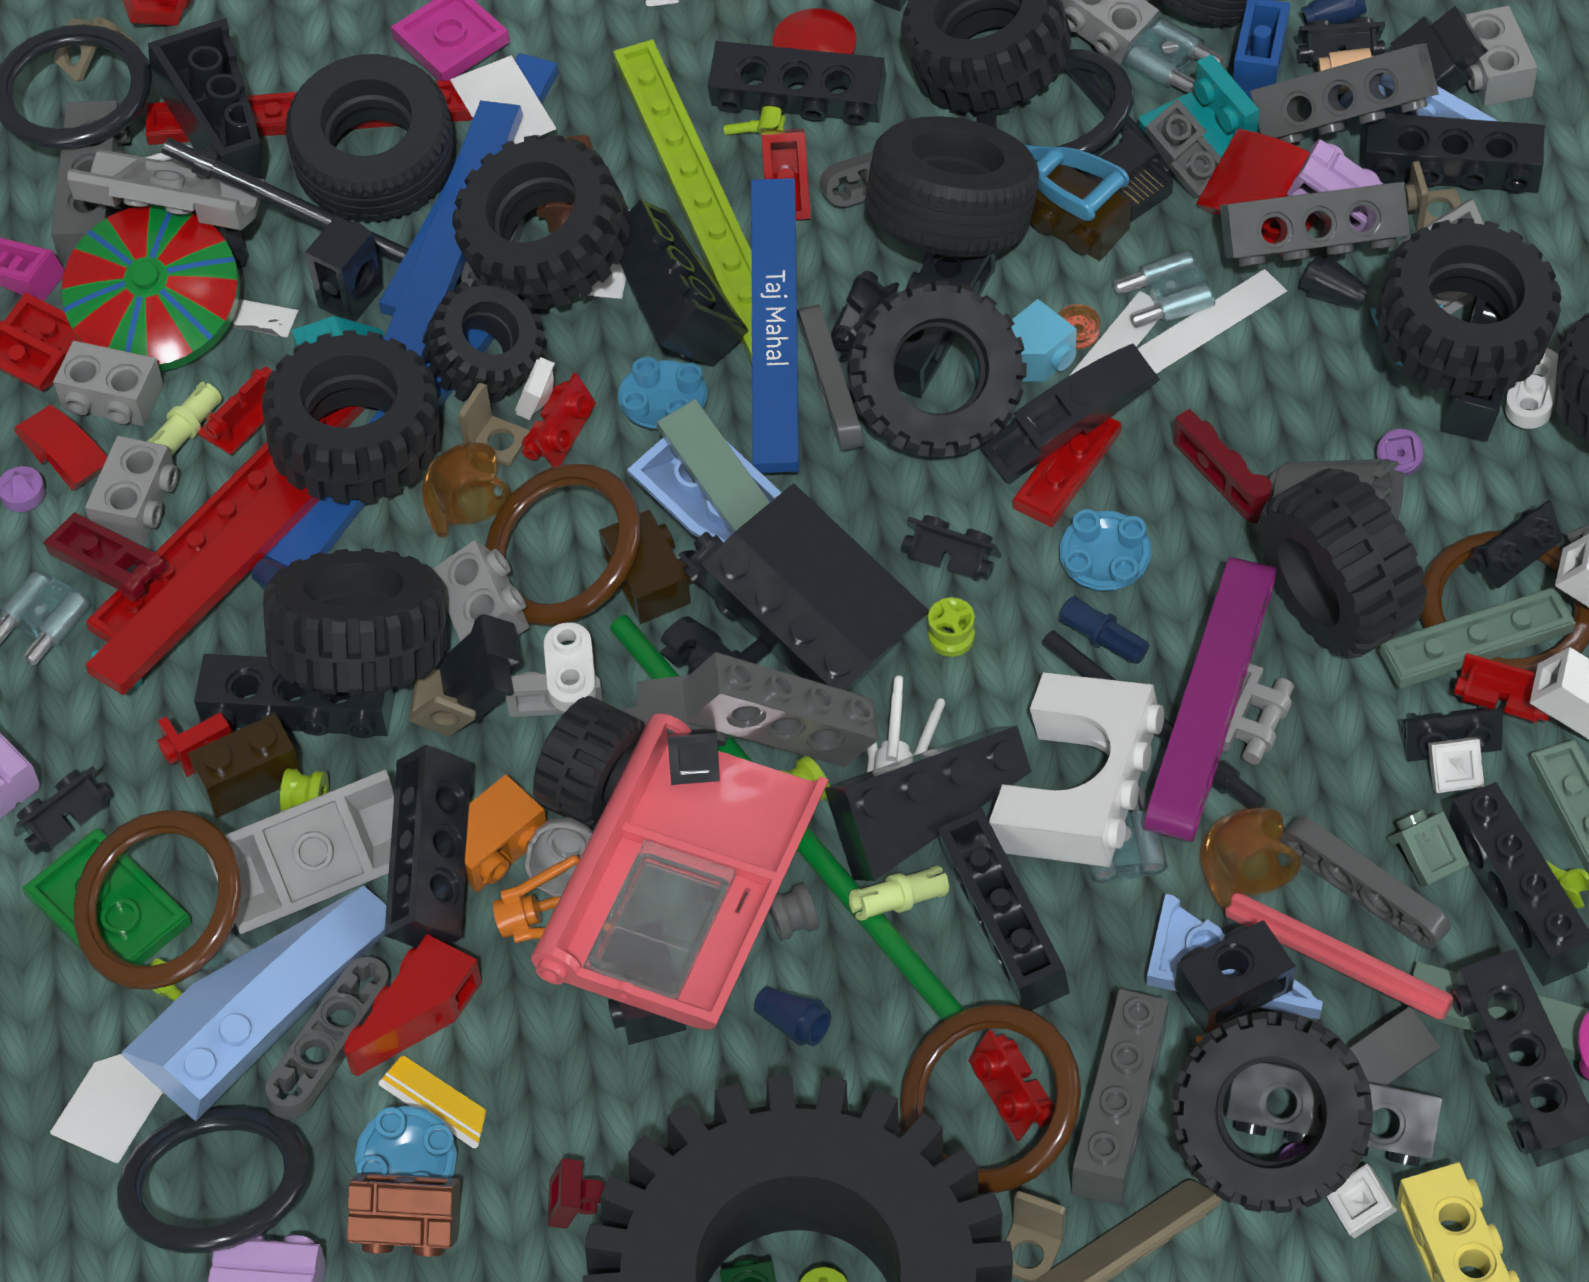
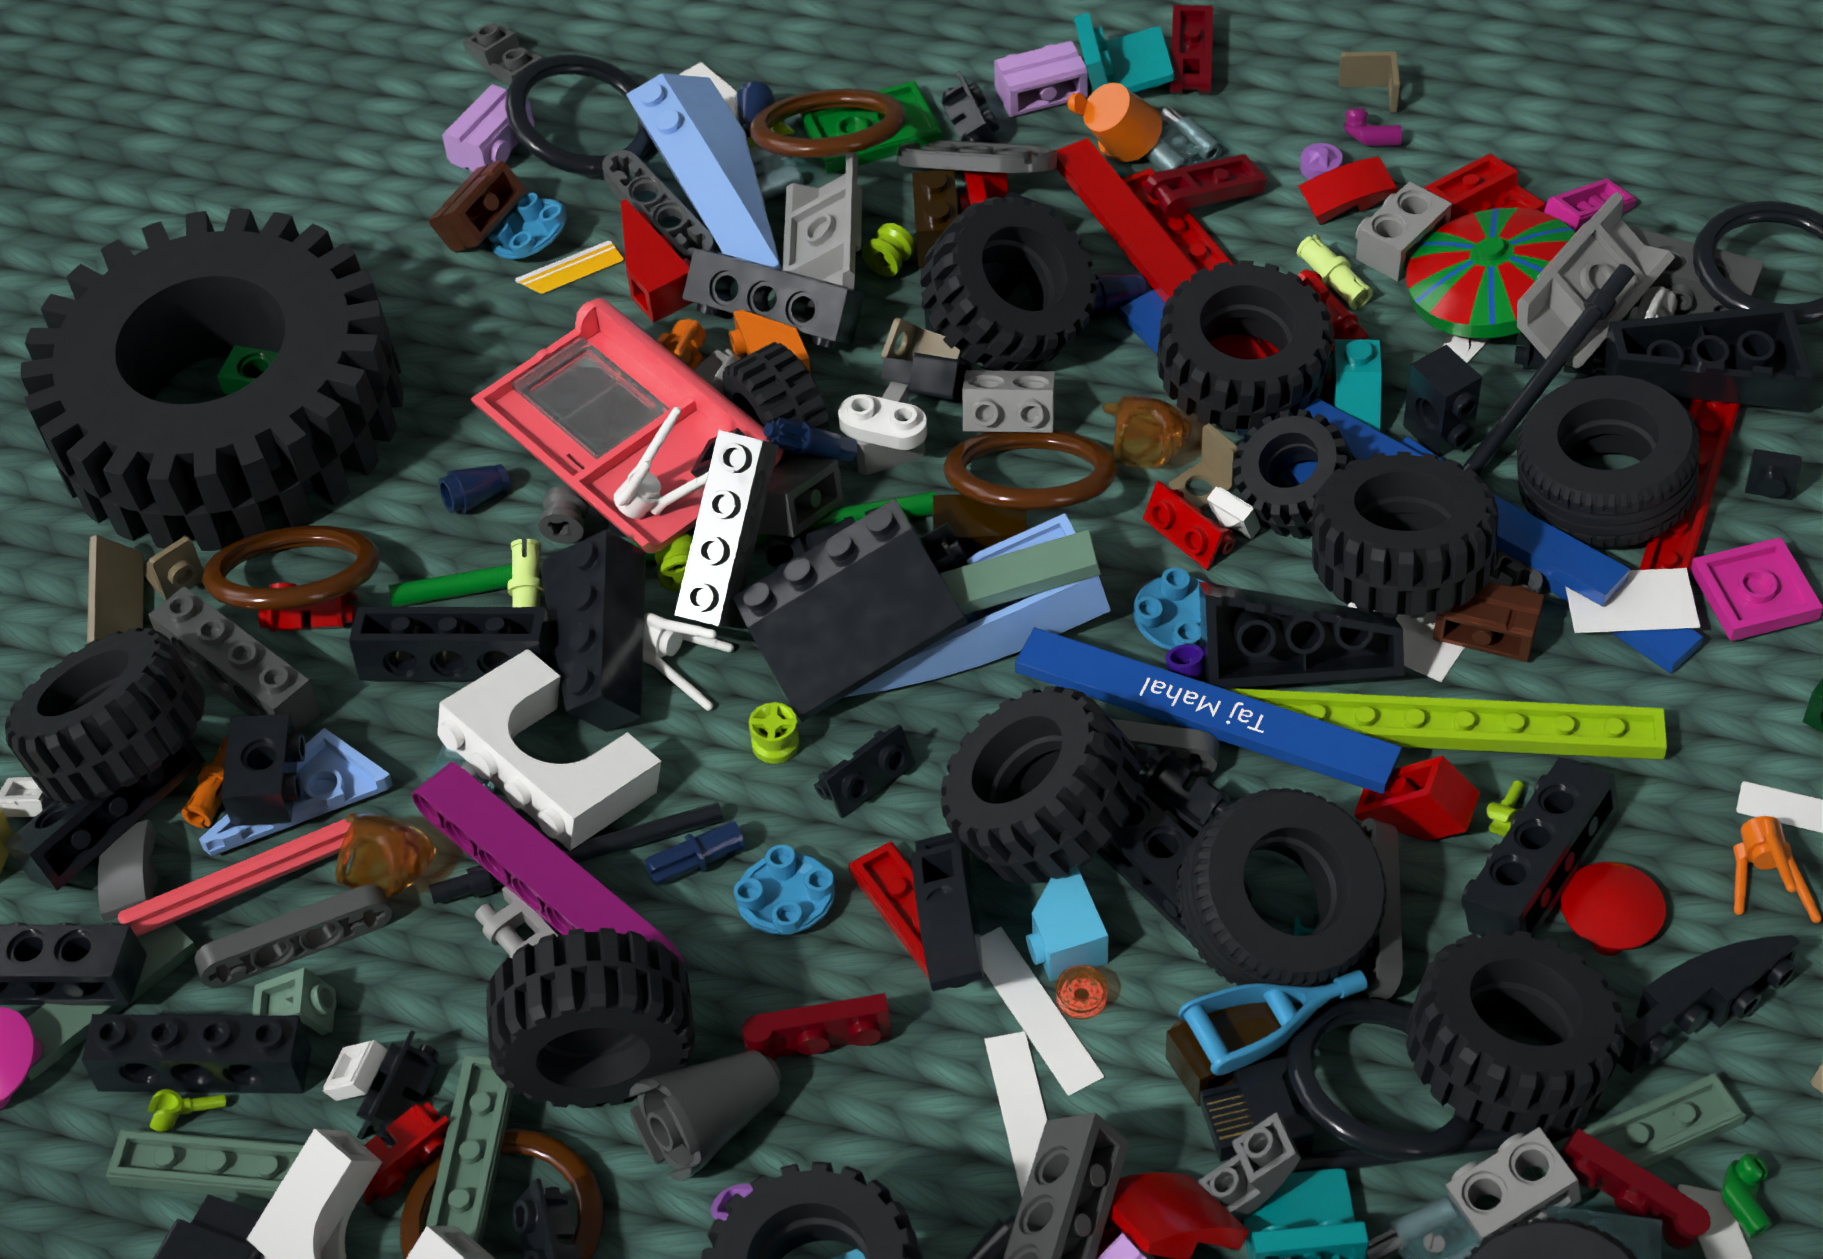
camera: 115 degrees right, 5 degrees down
(45, 651) = (1119, 120): none -> orange hat
(126, 1019) = (750, 101): none -> dark blue cone
(132, 488) = (1271, 217): light grey brick -> none
(149, 746) = (977, 156): none -> dark grey tile
(320, 48) = (1773, 474): none -> black plate
(571, 1194) = (423, 306): dark red tile -> none
(637, 698) = (803, 438): none -> dark blue piece
(716, 361) = (1186, 661): none -> dark purple hinge
(773, 801) = (642, 489): none -> white plant
(1174, 286) = (1081, 1089): clear light blue piece -> none

